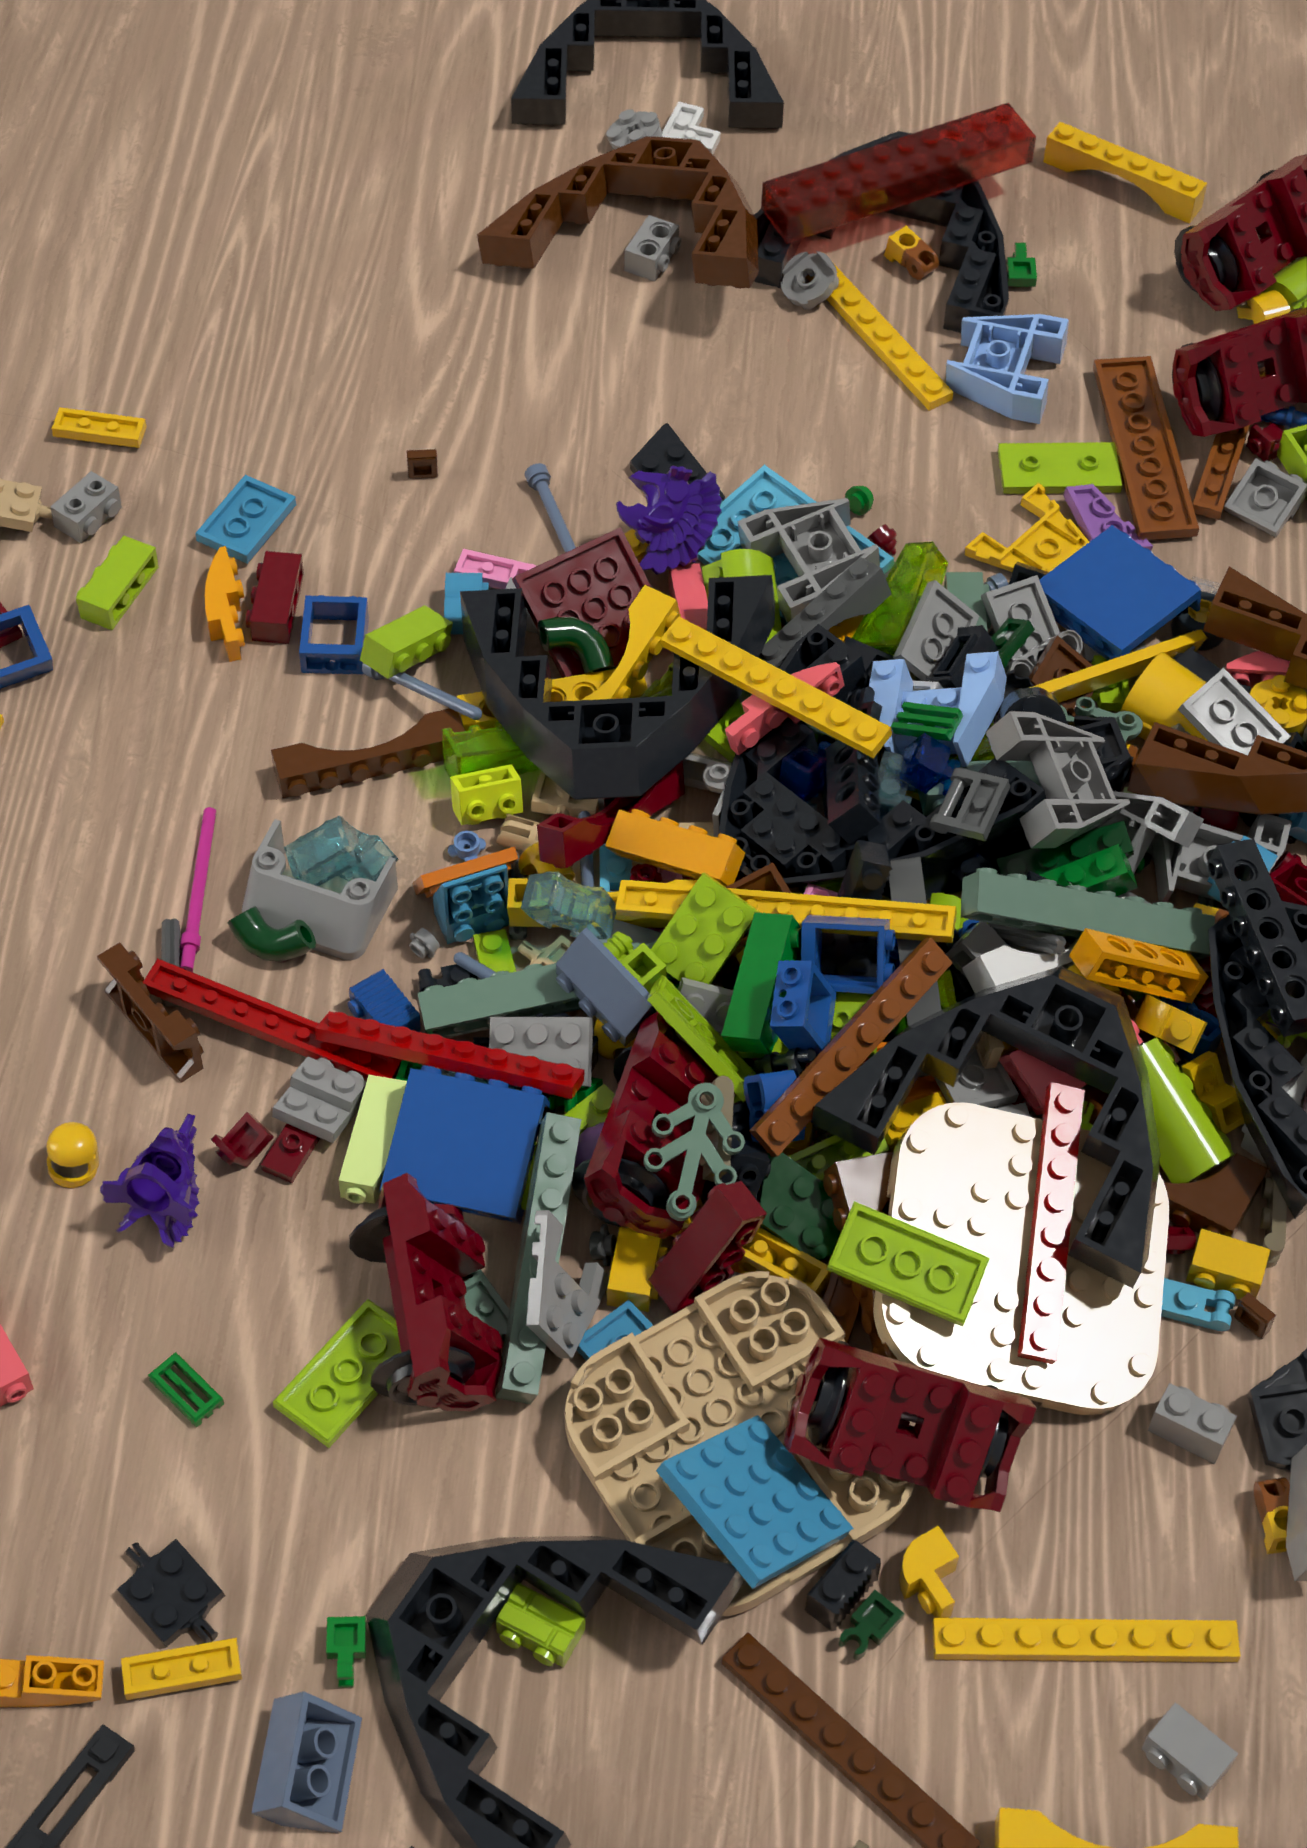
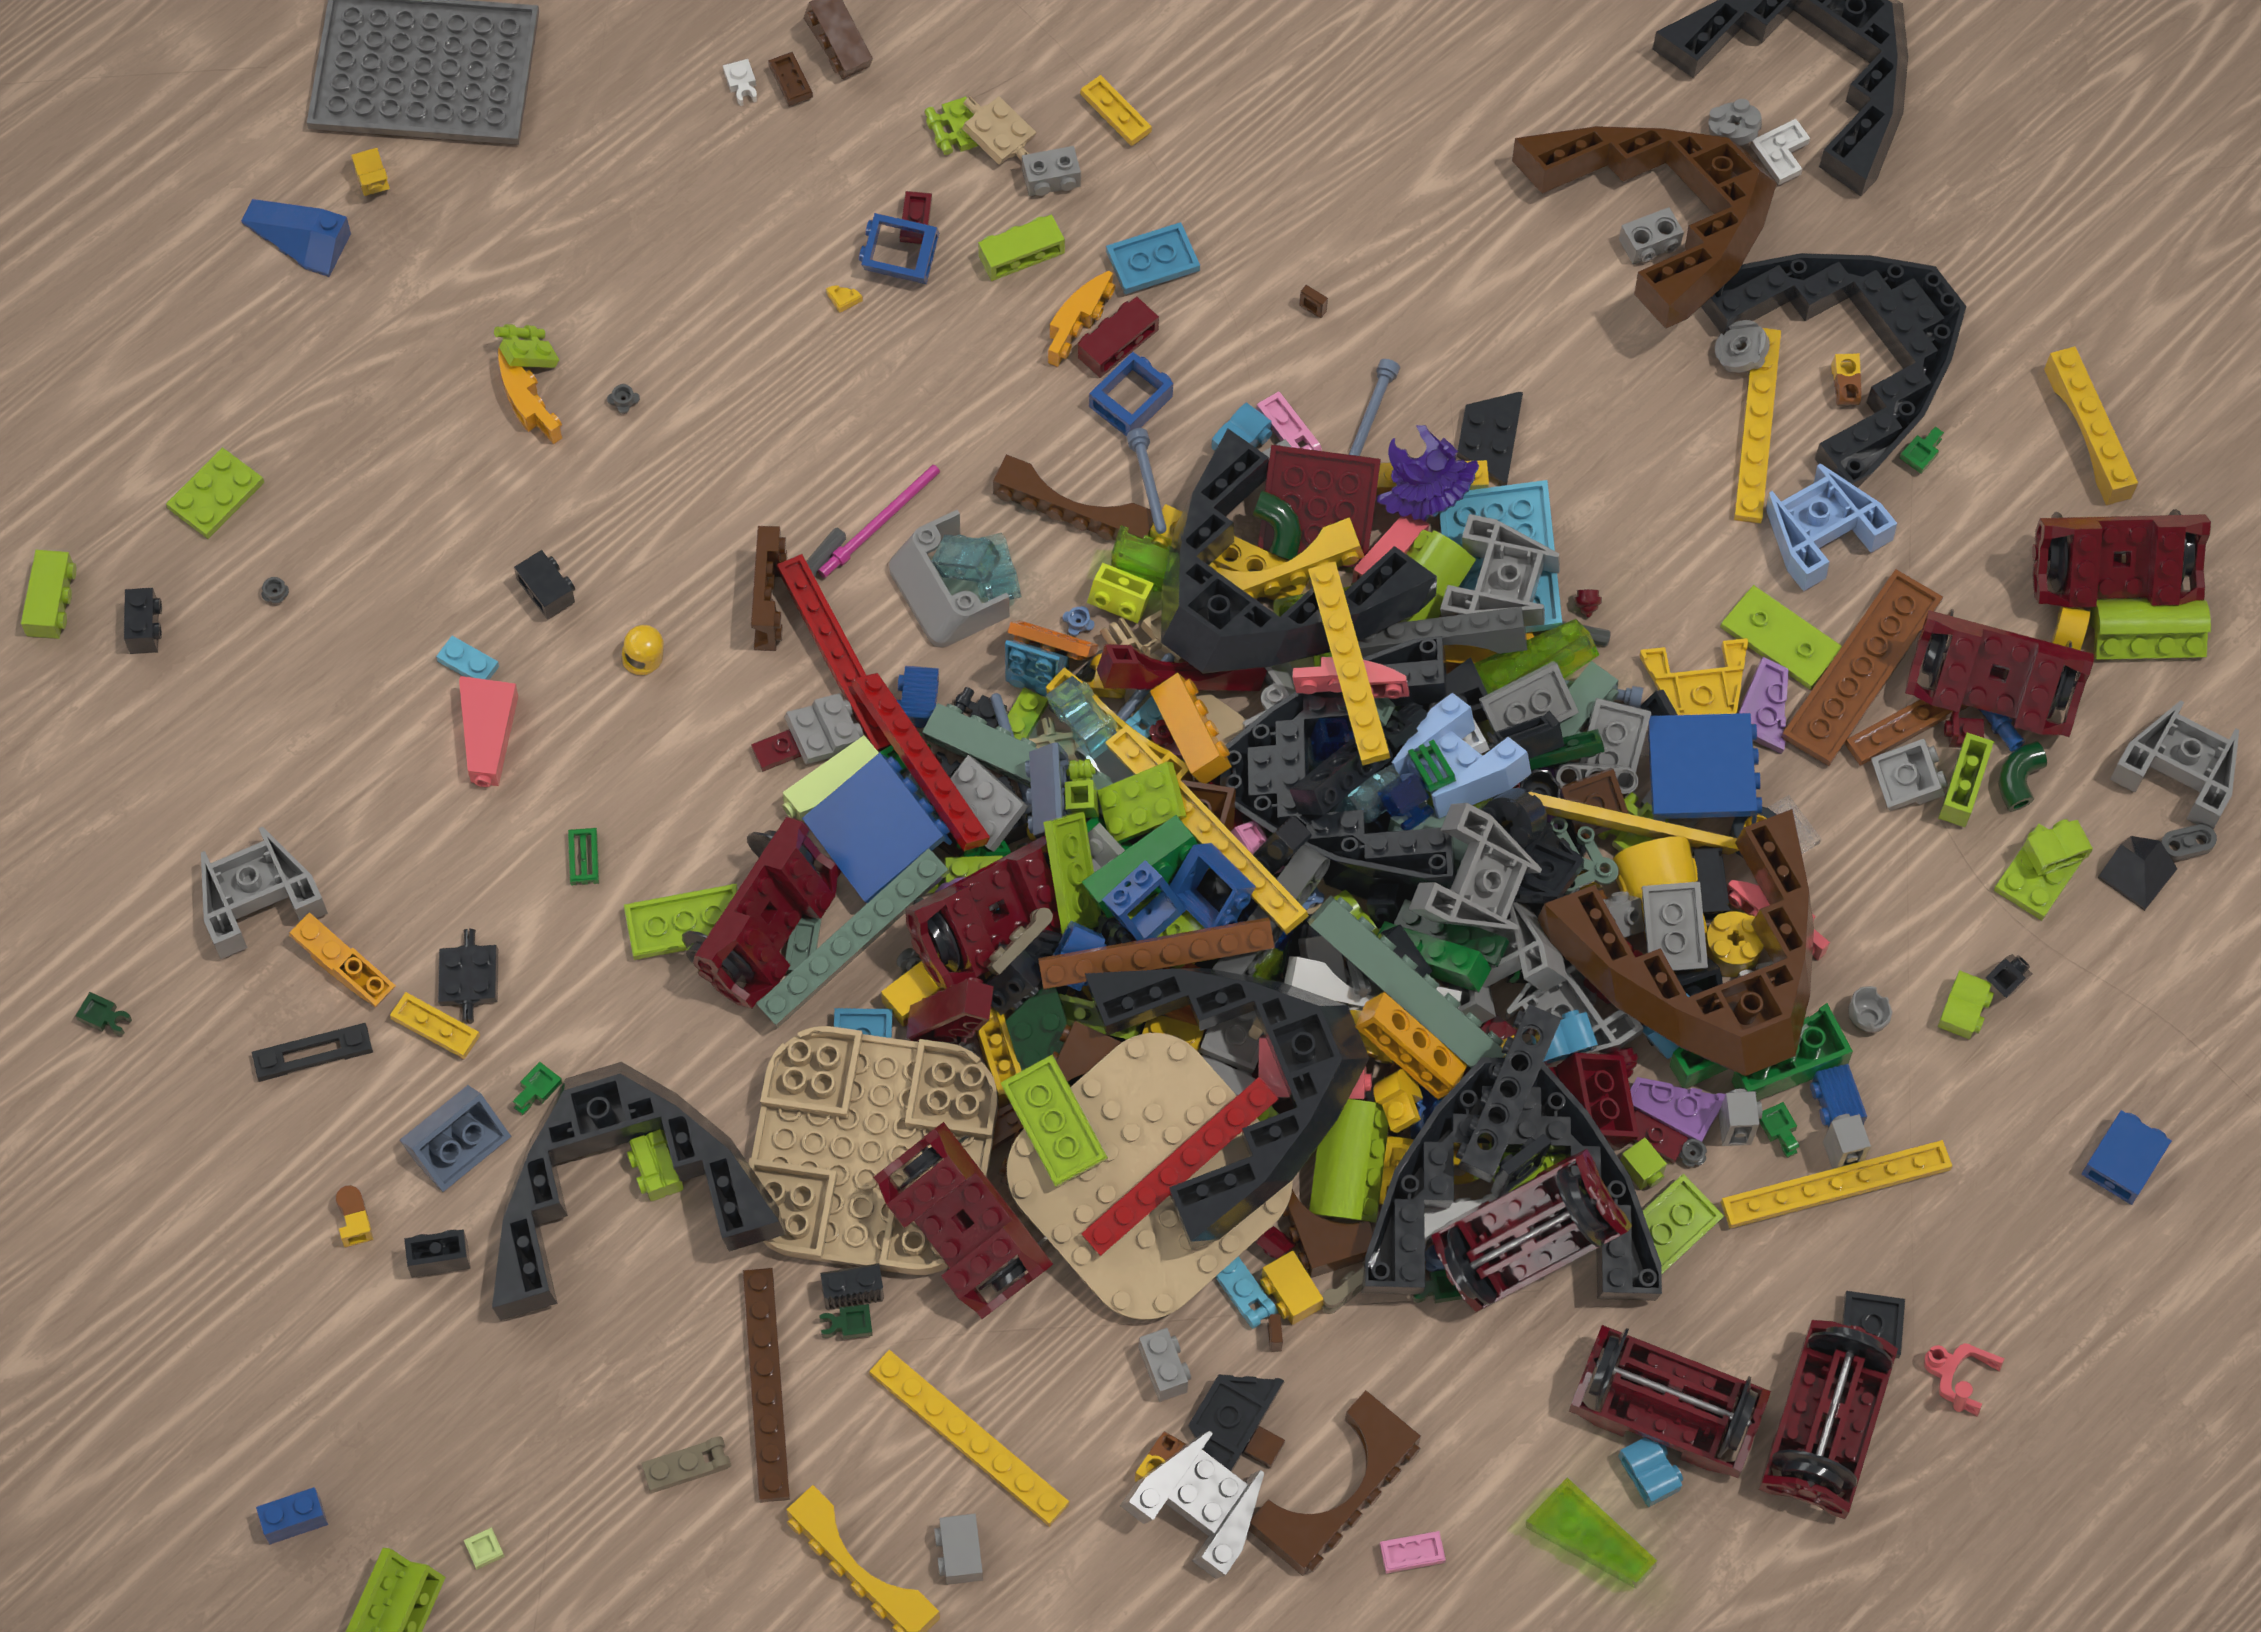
camera: 40 degrees right, 10 degrees up
(160, 1184) = (673, 713): dark purple piece -> none
(243, 1141) = (752, 720): dark red bracket -> none
(268, 942) = (887, 593): dark green cylinder -> none
(406, 641) = (1168, 437): lime brick -> none
(423, 943) = (986, 669): light grey plate -> none
(556, 1304) = (831, 976): light grey wing -> none
(695, 1144) = (988, 941): sand green plant -> none
(754, 1500) = (830, 1192): dark azure plate -> none
(859, 499) = (1602, 556): green plate -> none
(897, 172) = (1885, 306): clear red brick -> none
(923, 1565) = (912, 1313): yellow brick -> none
(978, 808) = (1393, 854): dark grey plate -> none

